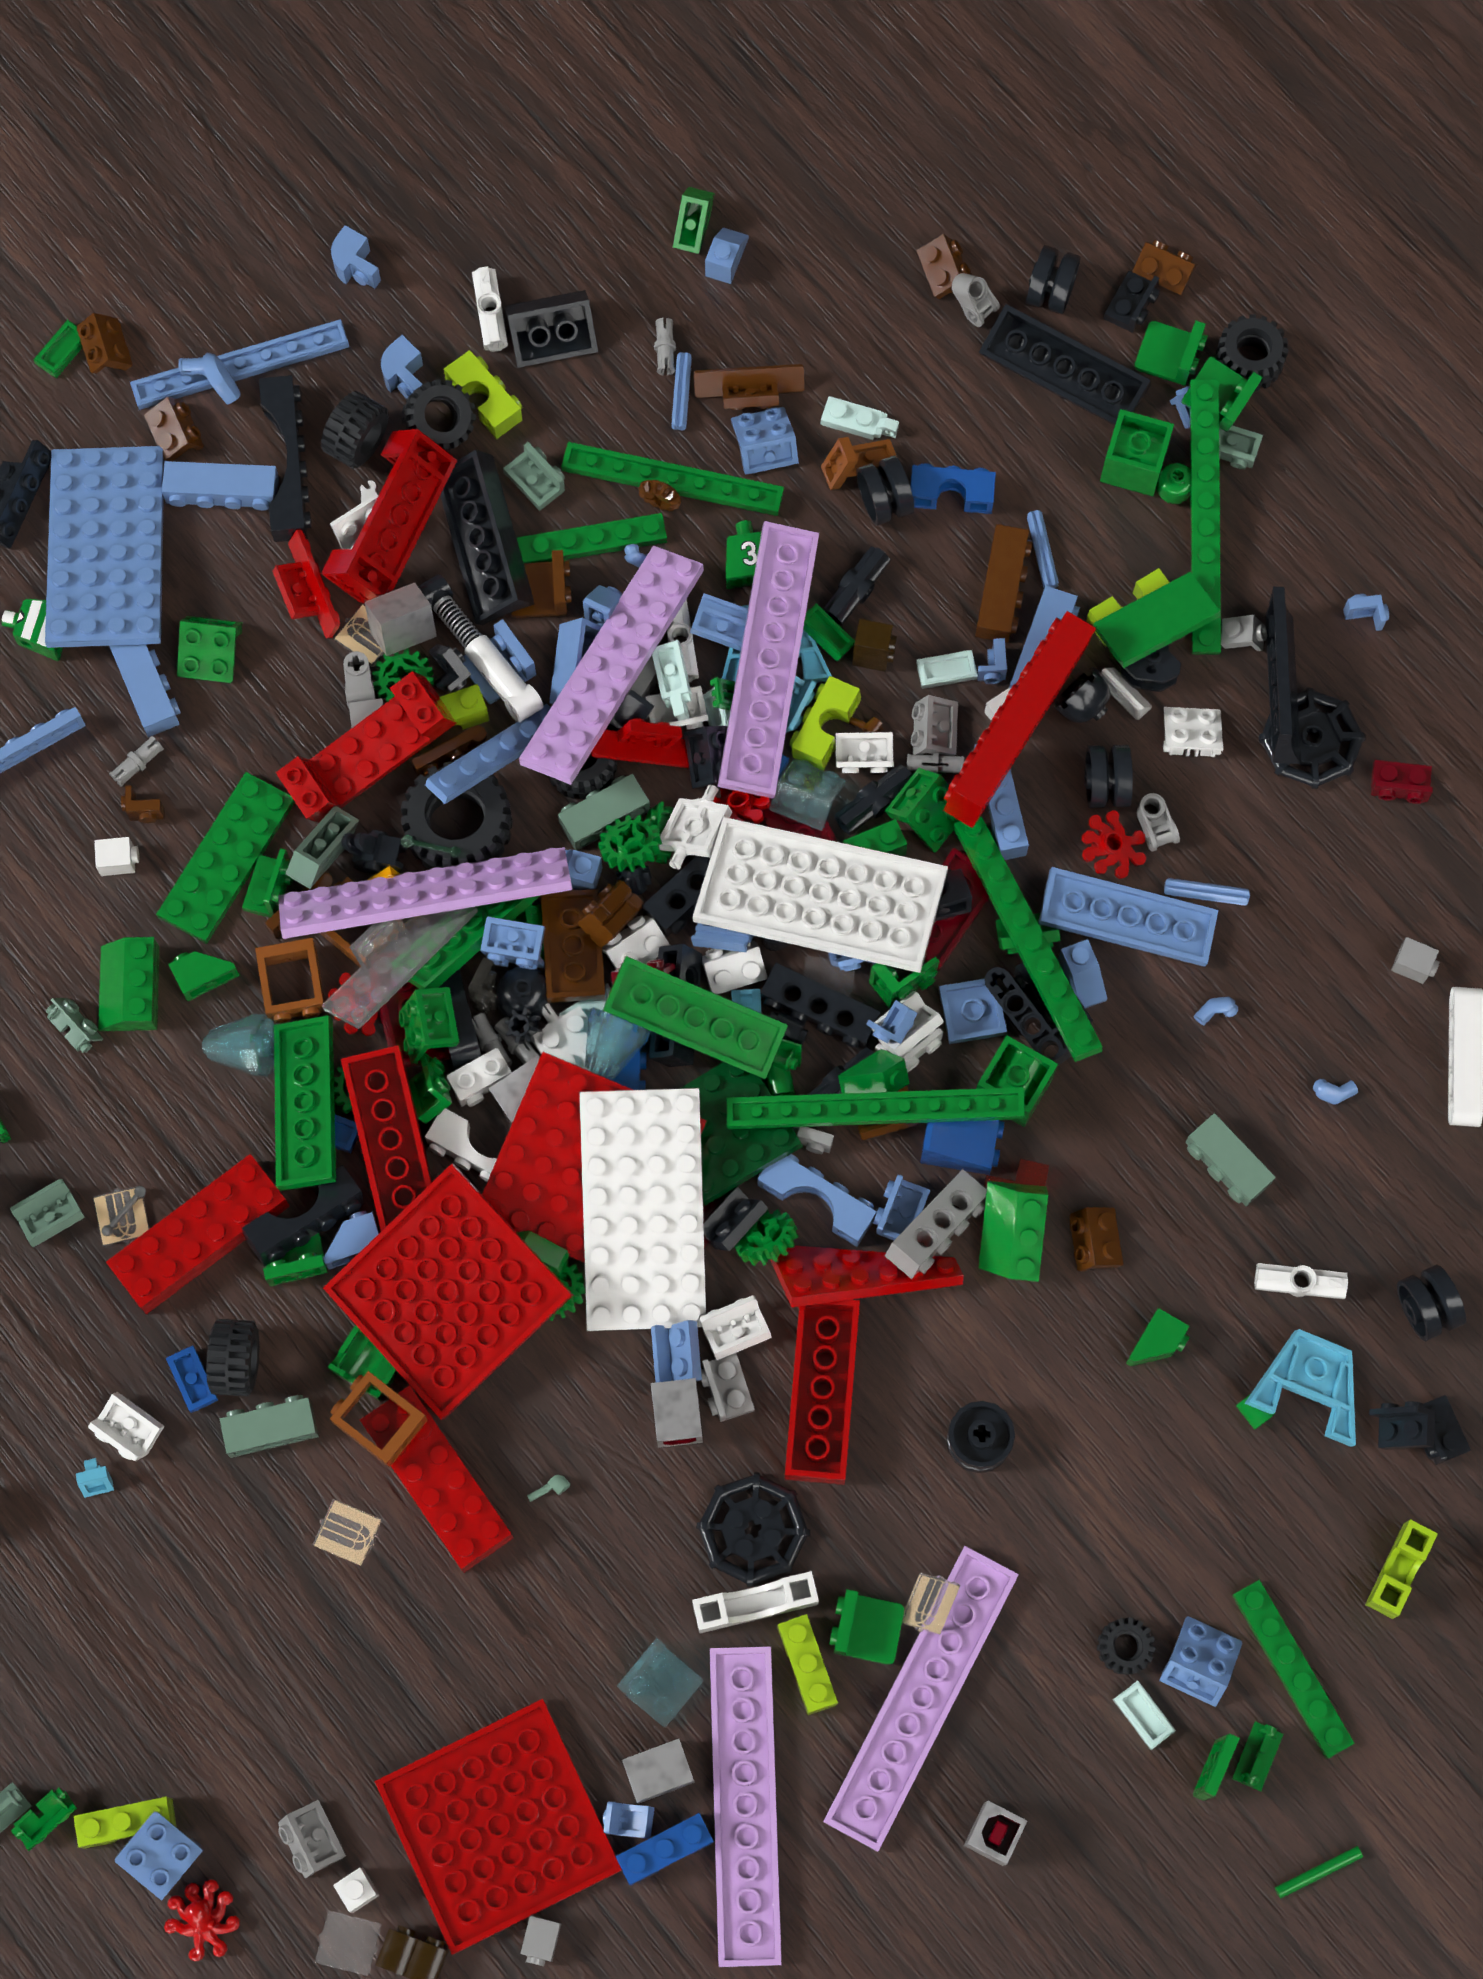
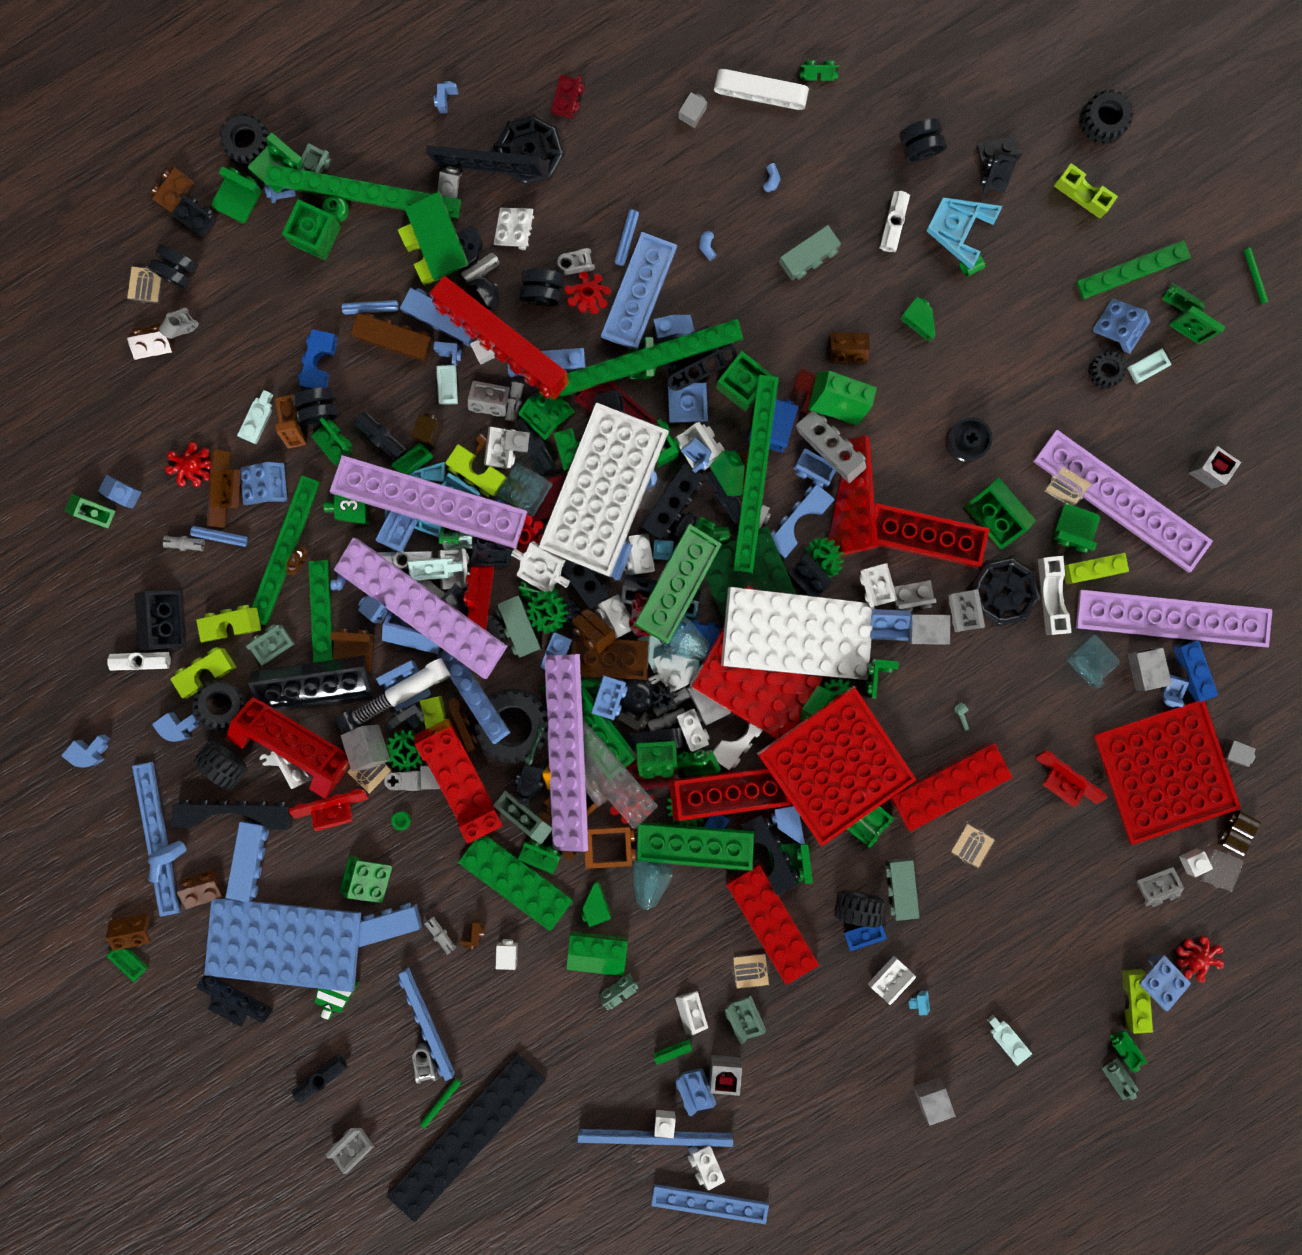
camera: 80 degrees left, 15 degrees up
(45, 1627) = (1009, 1041): none -> light aqua hinge
(50, 1136) = (691, 1013): none -> white slope
(140, 1192) = (737, 958): dark grey hinge -> none
(299, 686) = (401, 820): none -> green tile
(401, 1437) = (929, 805): dark orange window -> none
(461, 1664) = (1066, 782): none -> red bracket
(551, 400) = (214, 626): none -> lime arch
(602, 1332) = (872, 670): none -> green bracket
(713, 1467) = (966, 610): none -> light grey bracket
(776, 339) = (188, 465): none -> red animal
(840, 522) = (332, 442): none -> green bracket
(874, 1503) = (1000, 512): none -> green slope
(876, 767) = (514, 441): none -> light grey bracket
(1021, 249) = (144, 285): none -> piece
(1063, 365) = (237, 270): black arch -> none

